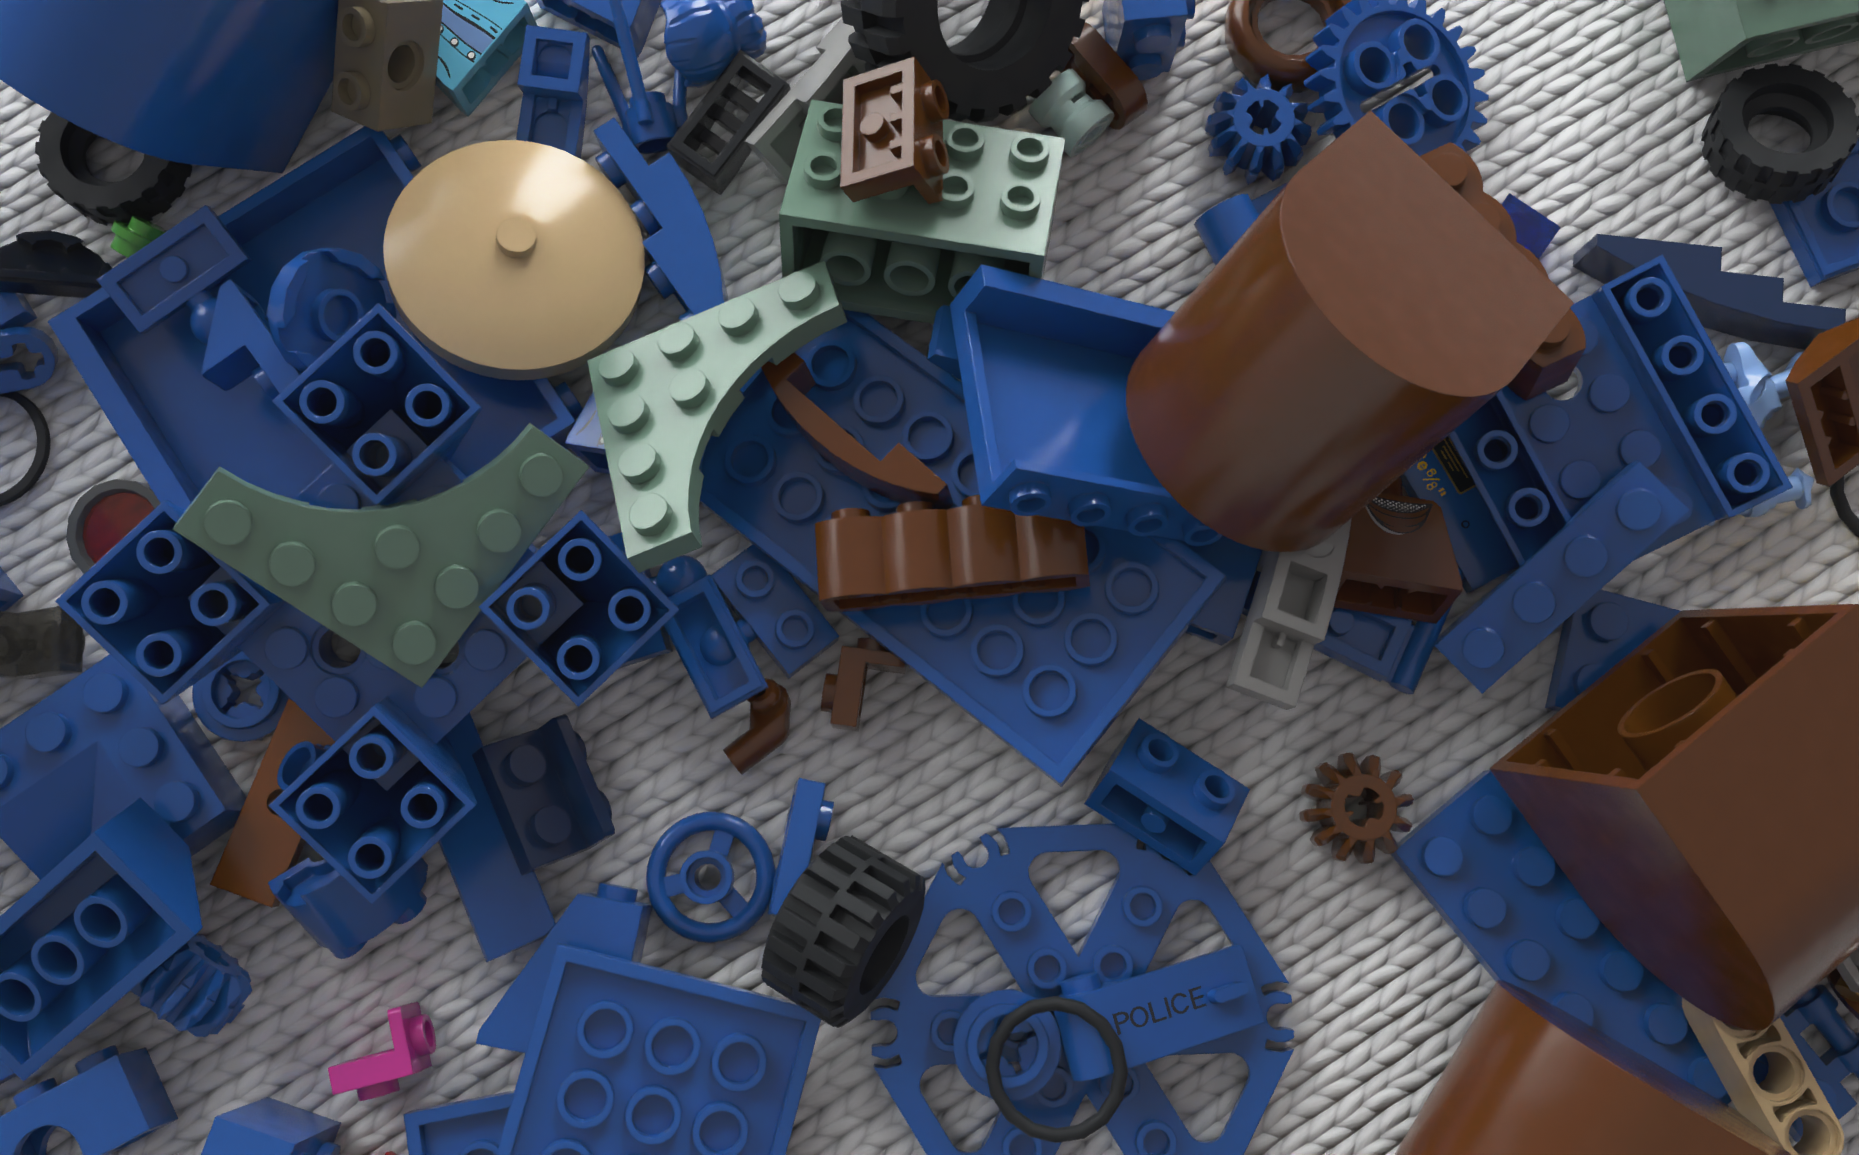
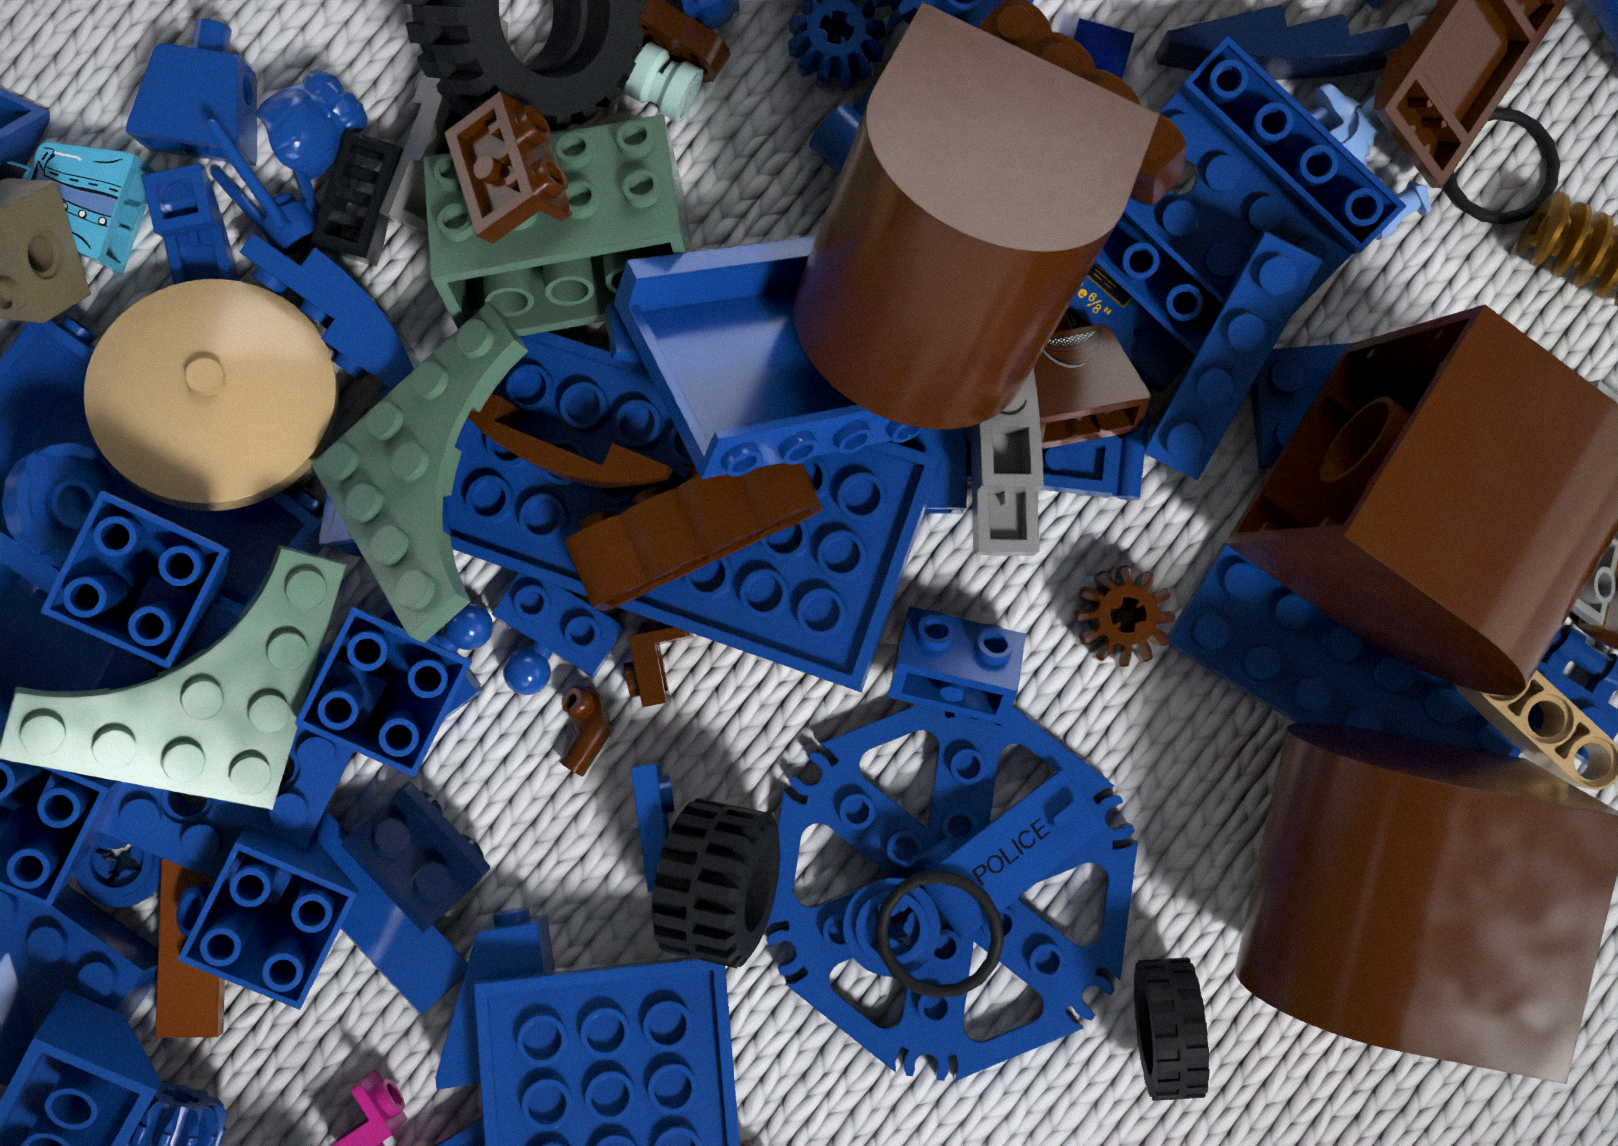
camera: 15 degrees left, 5 degrees up
(338, 913) = (277, 1025): blue cylinder -> none
(718, 686) = (490, 650): blue tile -> none
(743, 913) = (571, 887): blue piece -> none

